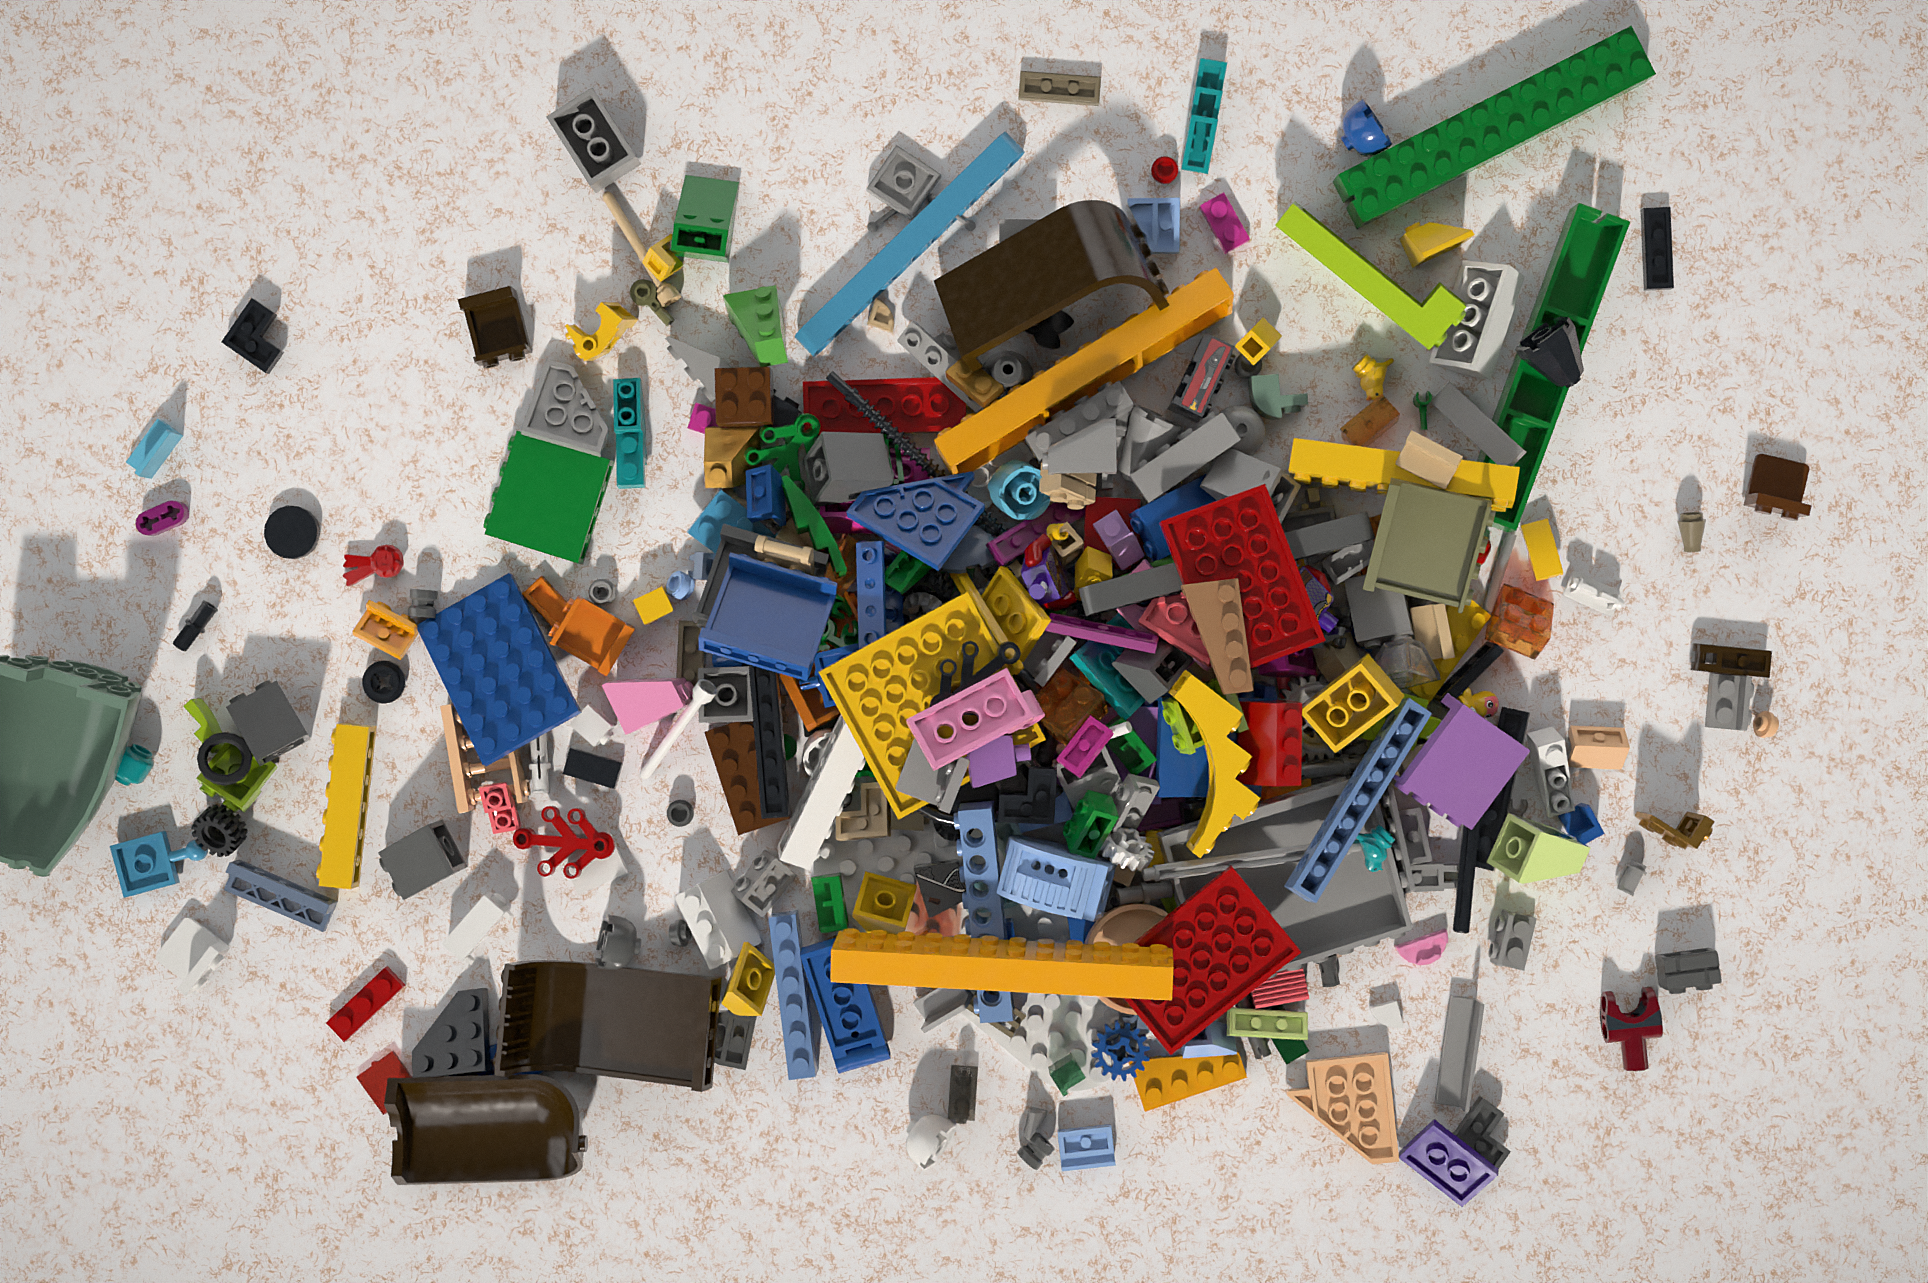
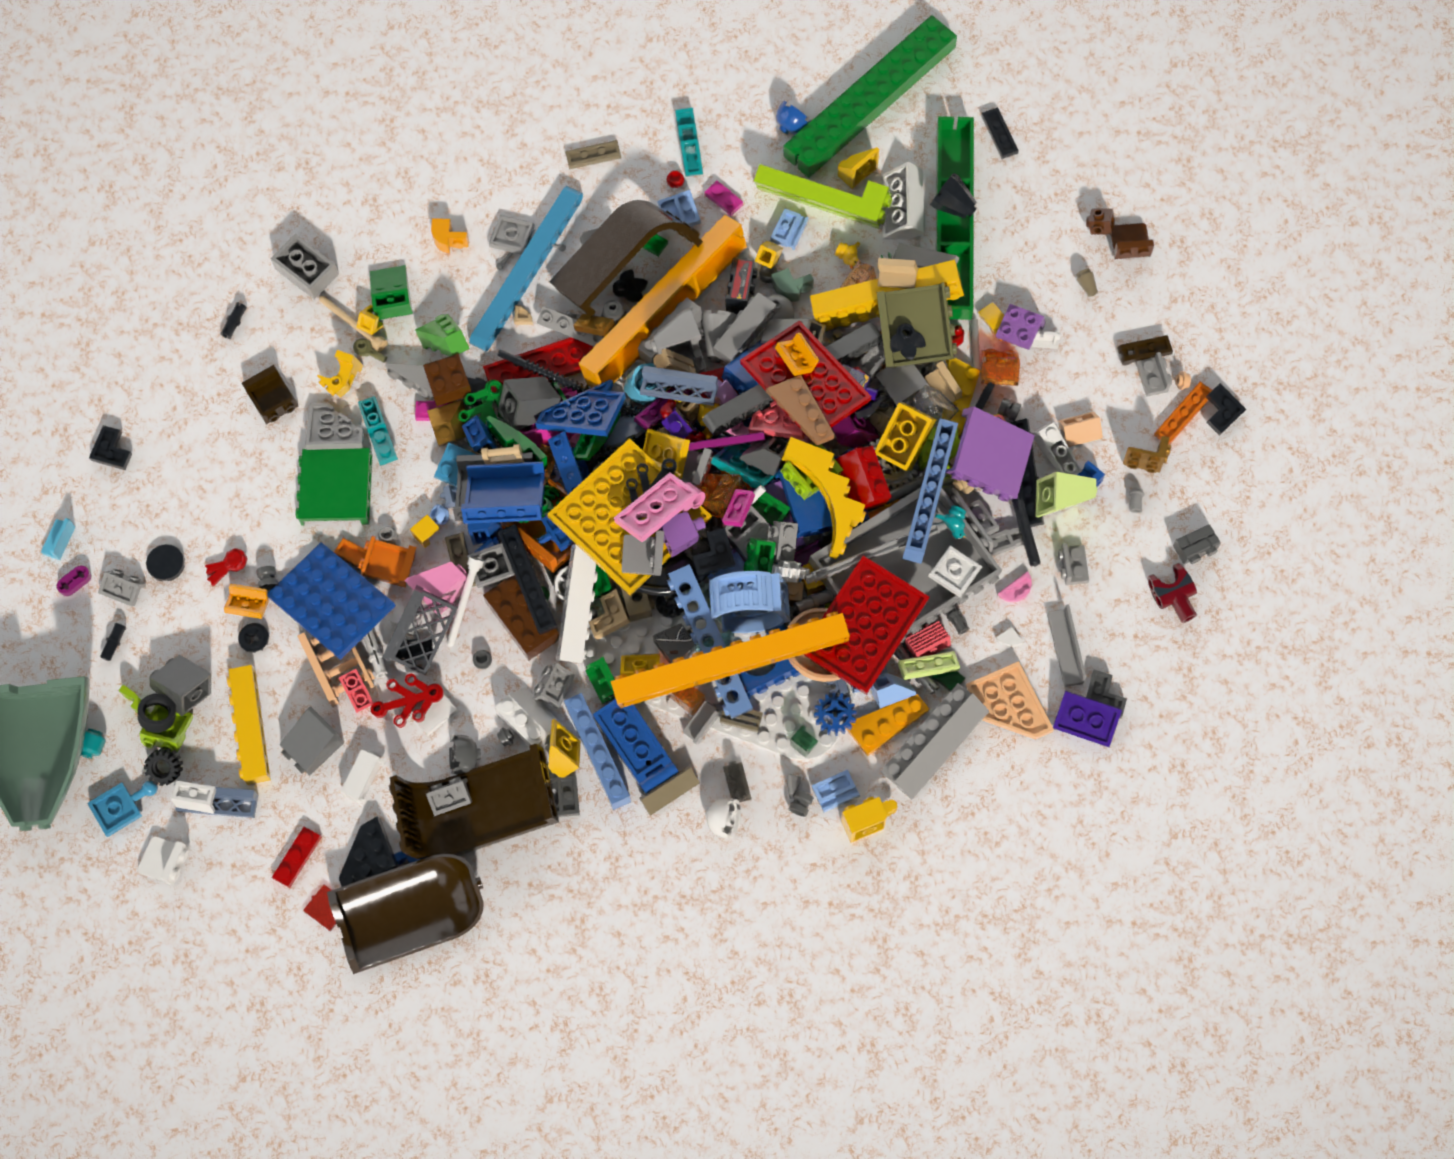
camera: 15 degrees left, 20 degrees down
(223, 550) = (121, 587): none -> light grey bracket
(248, 888) = (194, 796): none -> white panel
(473, 190) = (233, 320): none -> black pin
(581, 995) = (449, 796): none -> light grey bracket
(584, 747) = (405, 622): none -> black fence
(804, 151) = (445, 238): none -> light orange brick
(871, 1076) = (669, 790): none -> dark tan tile
(1068, 515) = (680, 381): none -> sand blue fence
(1115, 1204) = (867, 817): none -> yellow hinge
(1238, 1127) = (935, 741): none -> light grey slope
(1243, 547) = (797, 355): none -> light orange bracket
(1301, 306) = (789, 229): none -> light blue plate
(1349, 915) = (955, 571): none -> white tile
(1405, 566) = (907, 344): none -> black plate
(1509, 689) = (1009, 409): none -> dark grey wheel
(1571, 574) = (1020, 326): none -> medium lavender bracket
(1747, 445) = (1101, 221): none -> reddish brown brick
(1747, 771) = (1184, 413): none -> orange tile
(1810, 788) = (1228, 409): none -> black plate

